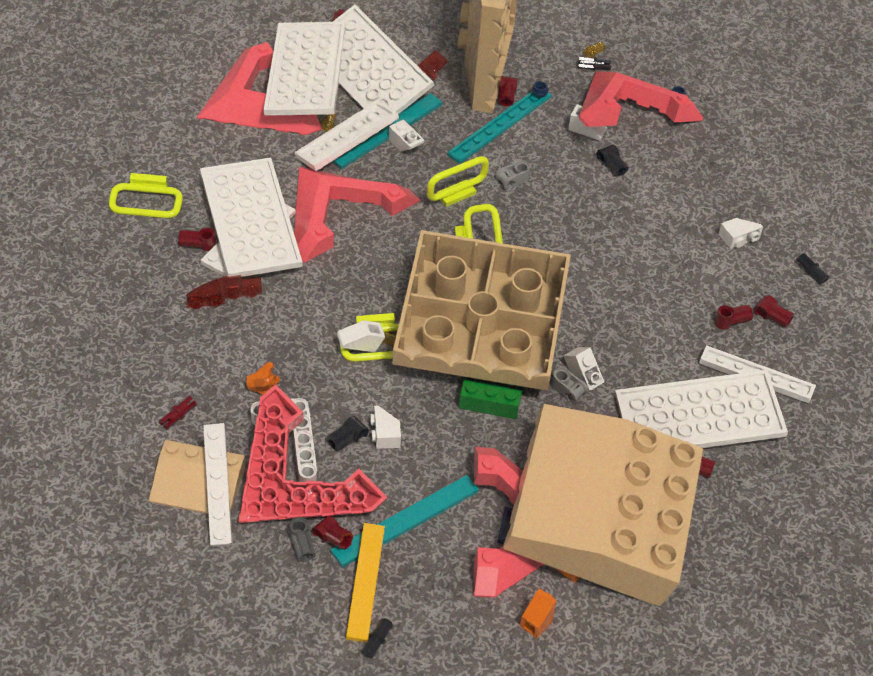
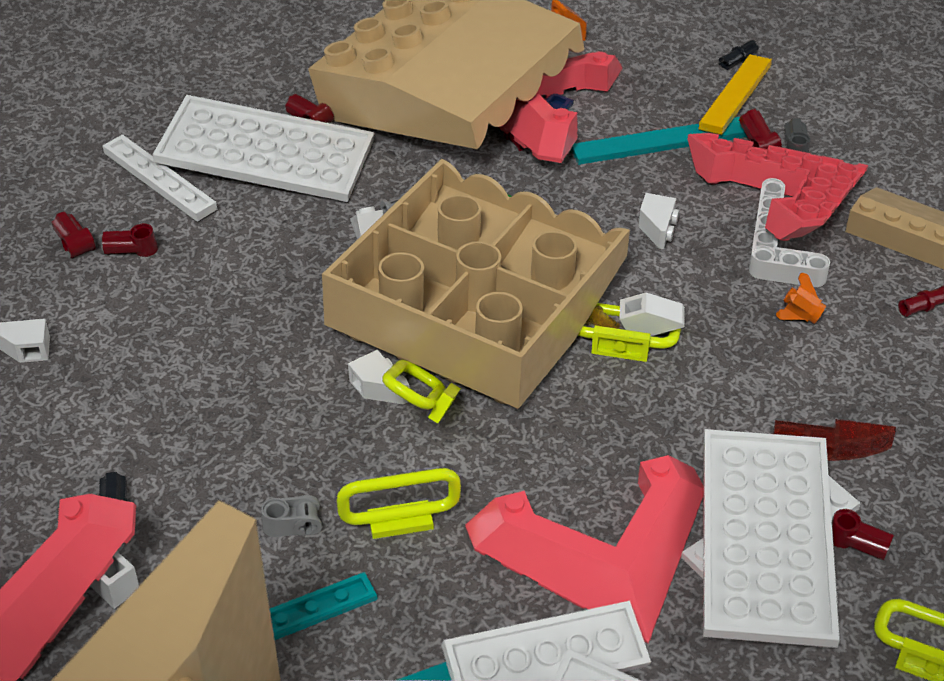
camera: 155 degrees left, 5 degrees down
(217, 485) = (889, 189): white plate -> none
(351, 431) = (700, 230): black piece -> none
(404, 136) = (438, 620): white slope -> none

